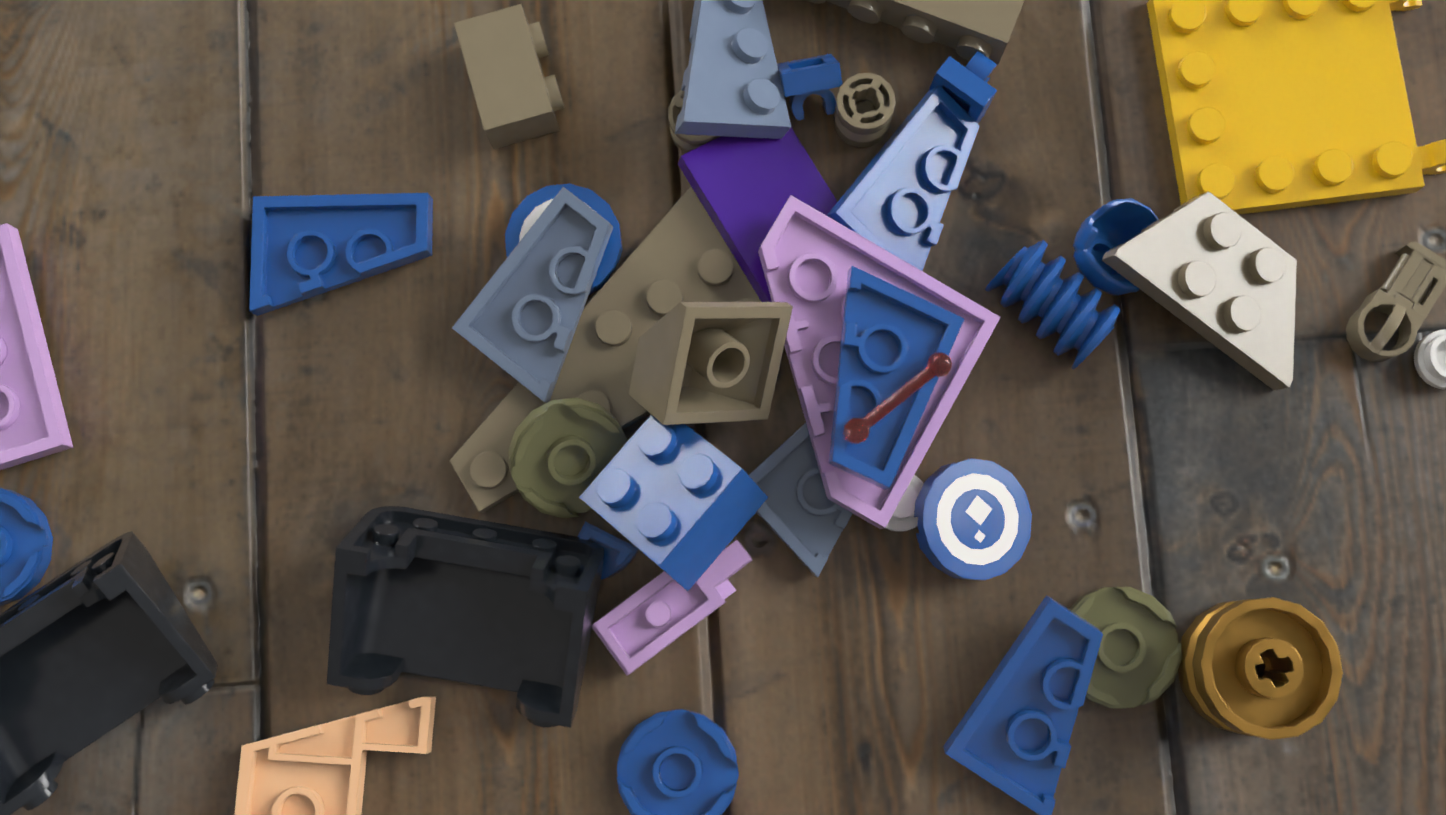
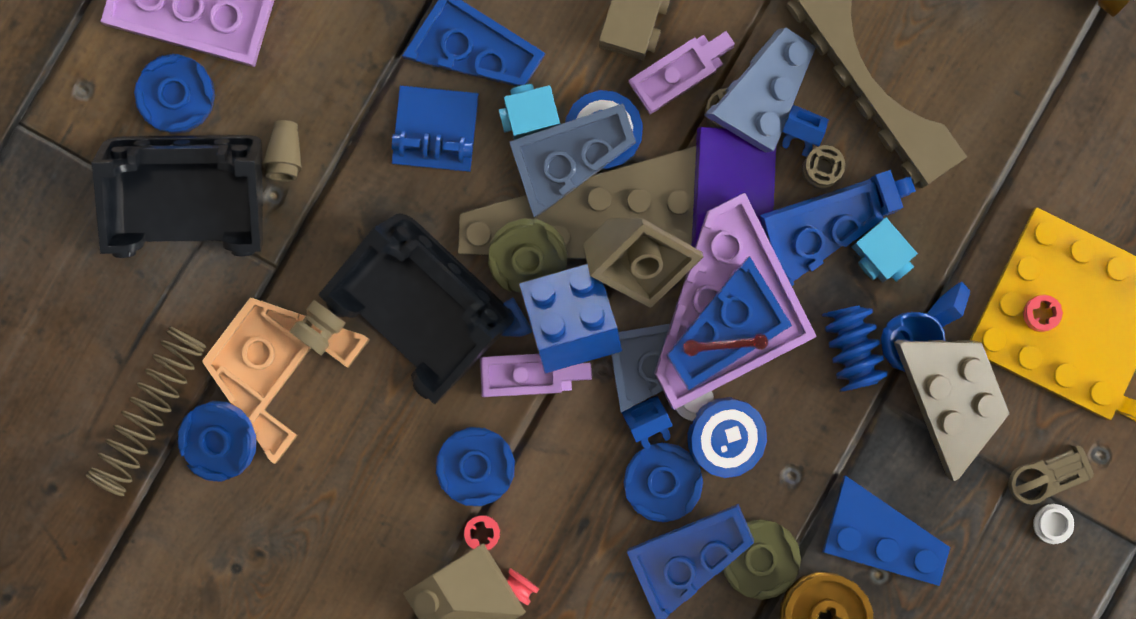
camera: 25 degrees right, 5 degrees up
(173, 531) = (283, 152): none -> dark tan cone
(350, 376) = (435, 128): none -> blue hinge
(350, 713) = (322, 319): none -> dark tan wheel
(452, 274) = (529, 110): none -> medium azure brick
(611, 110) = (680, 71): none -> lavender hinge
(858, 564) = (646, 420): none -> blue tile
(929, 631) = (663, 482): none -> blue tile
(1009, 163) = (884, 252): none -> medium azure brick
(1133, 173) = (951, 304): none -> blue tile
(1249, 517) = (881, 537): none -> blue wing
(1258, 91) = (1035, 303): none -> coral bush

